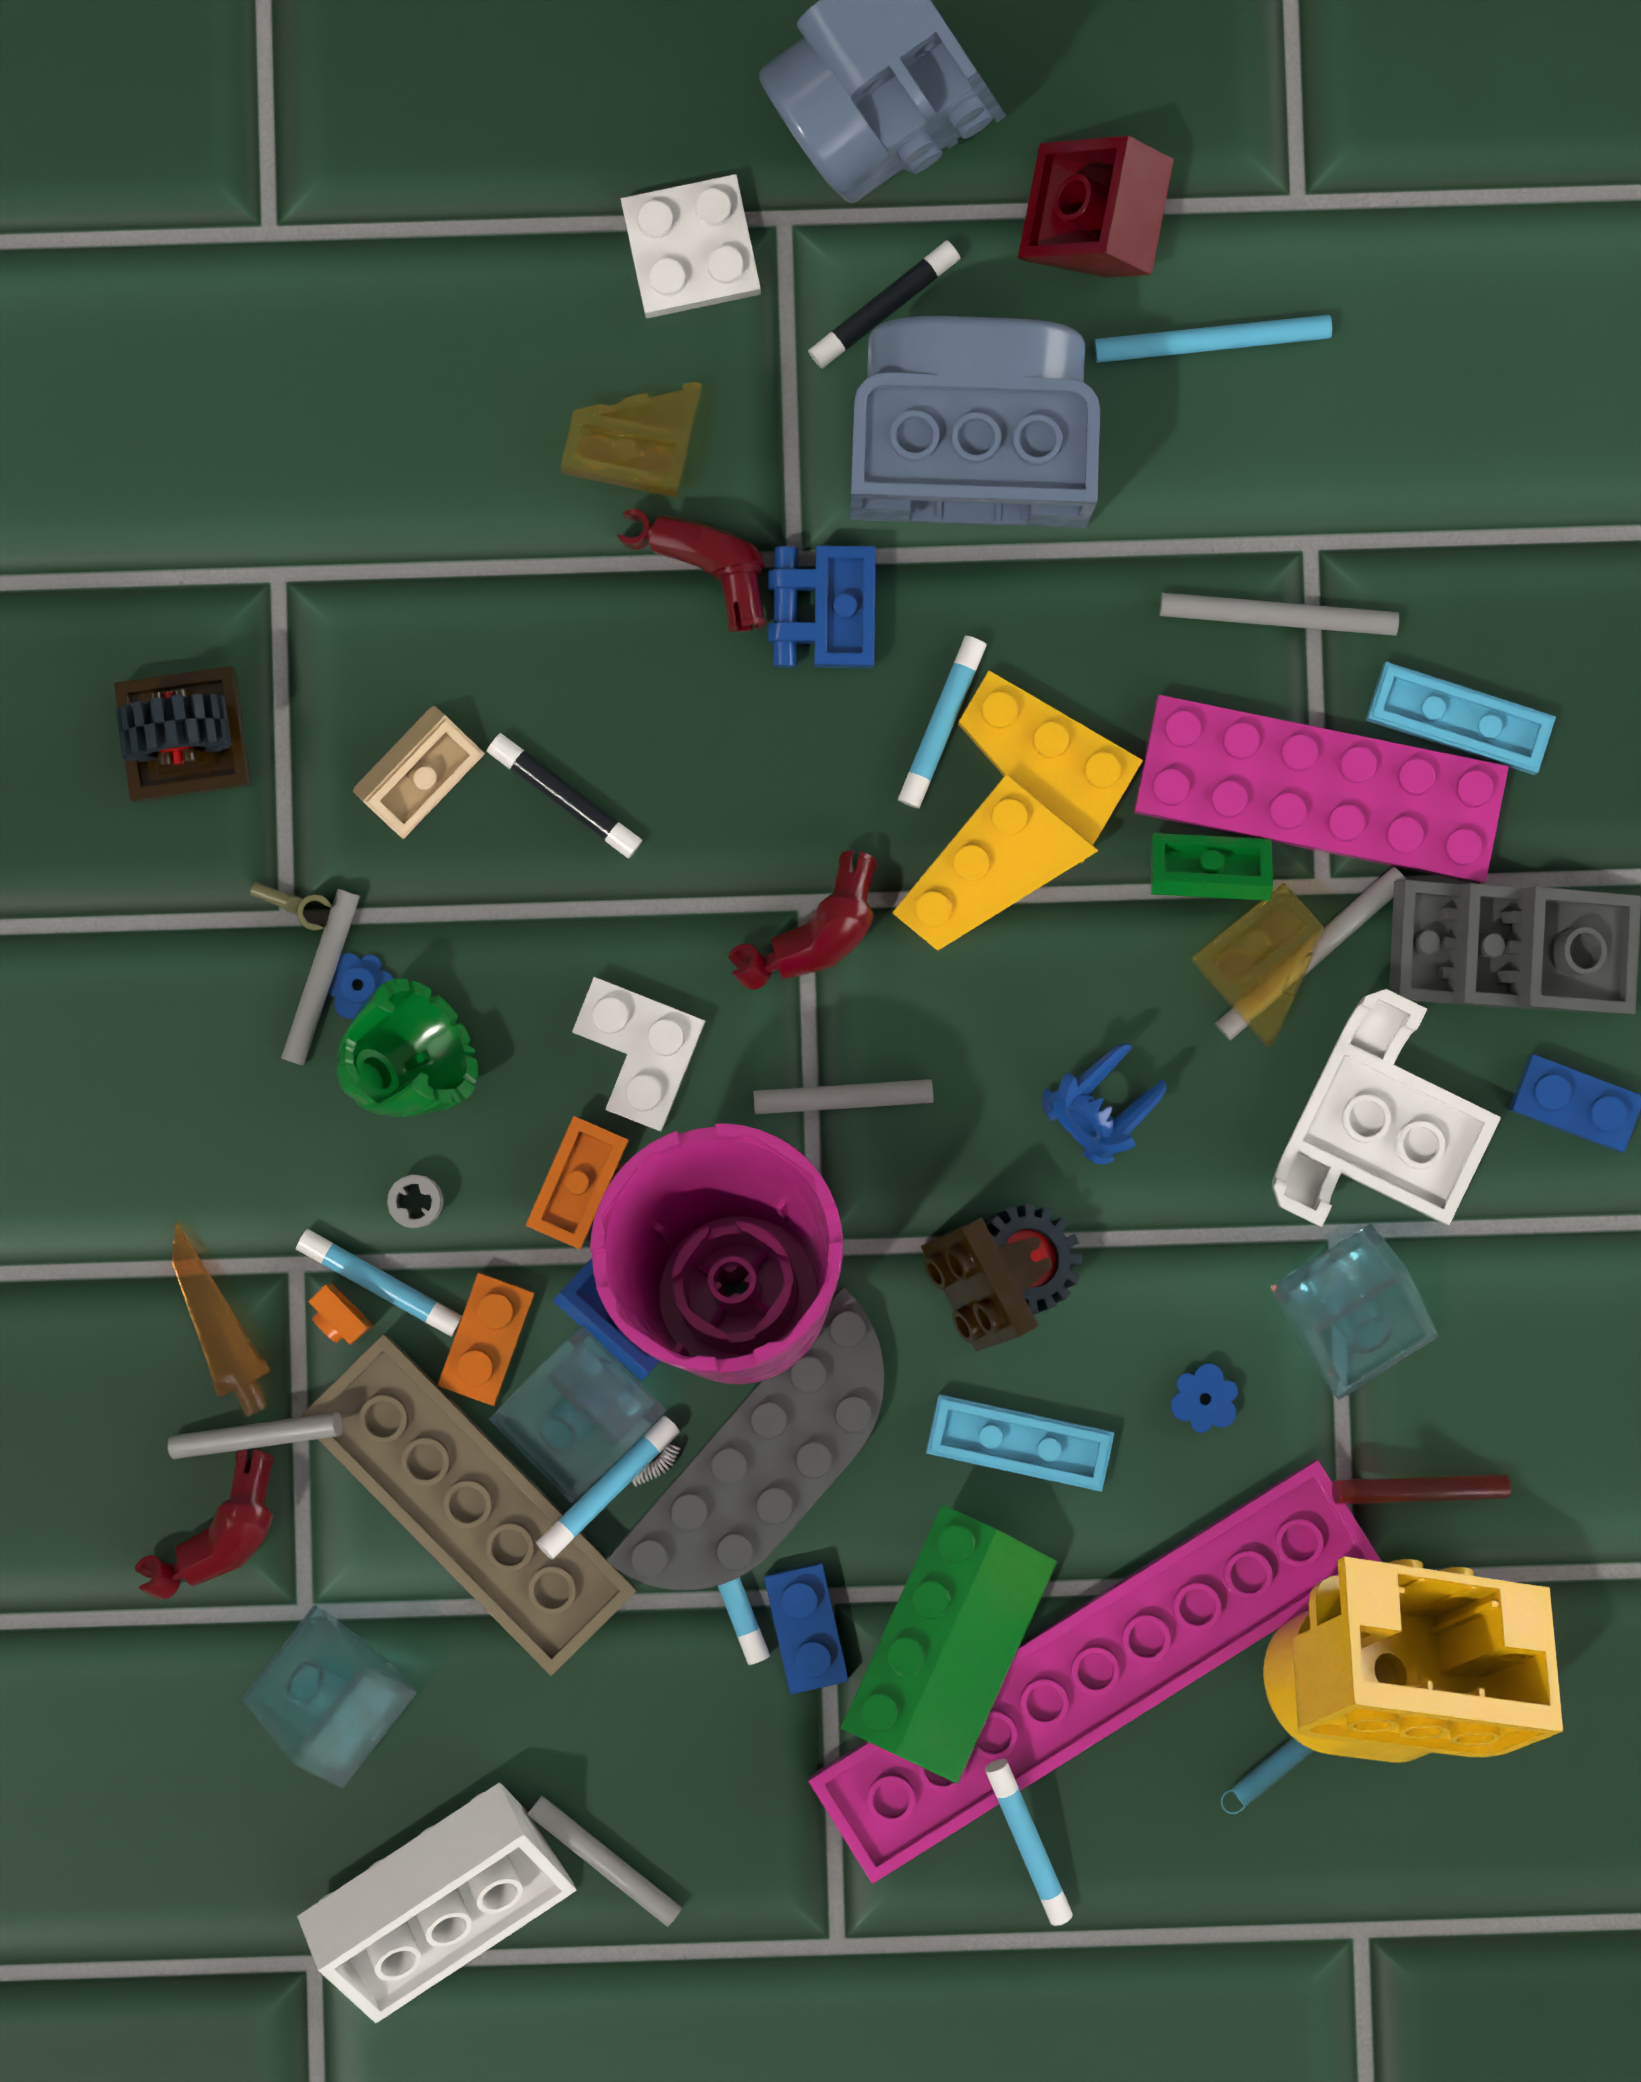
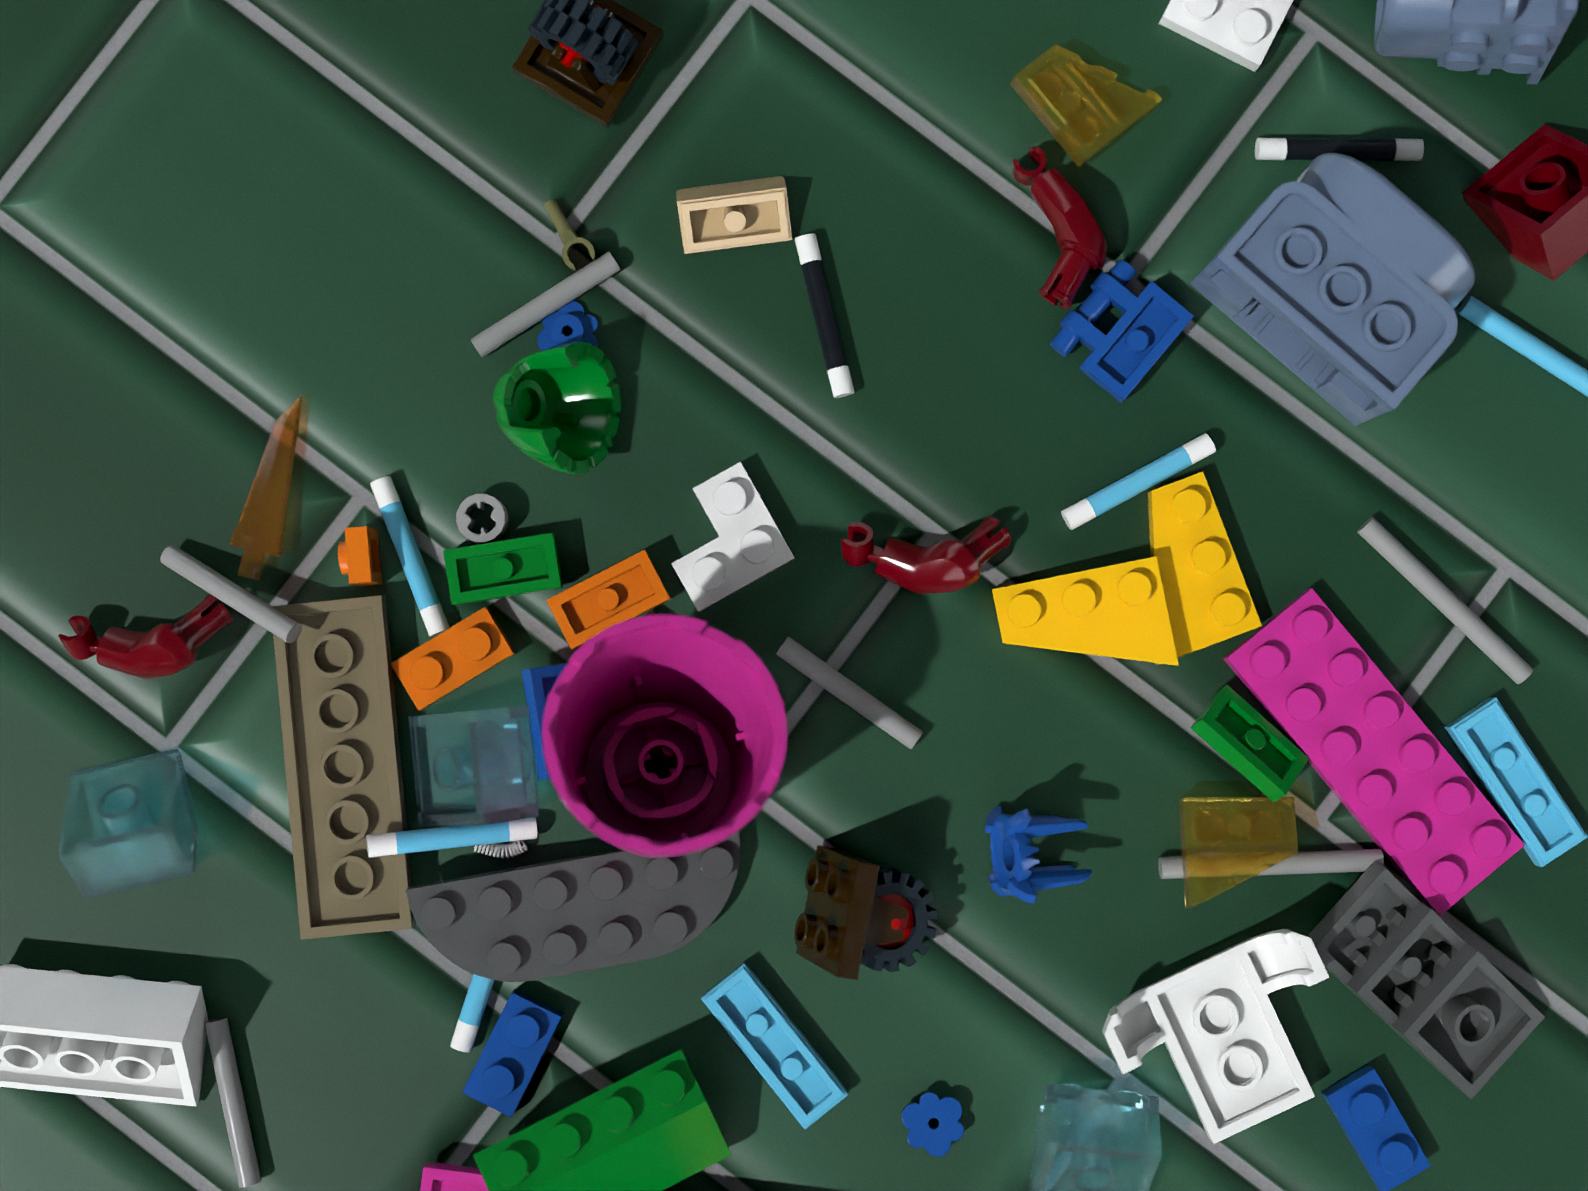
camera: 40 degrees right, 0 degrees up
(467, 1229) = (503, 569): none -> green plate

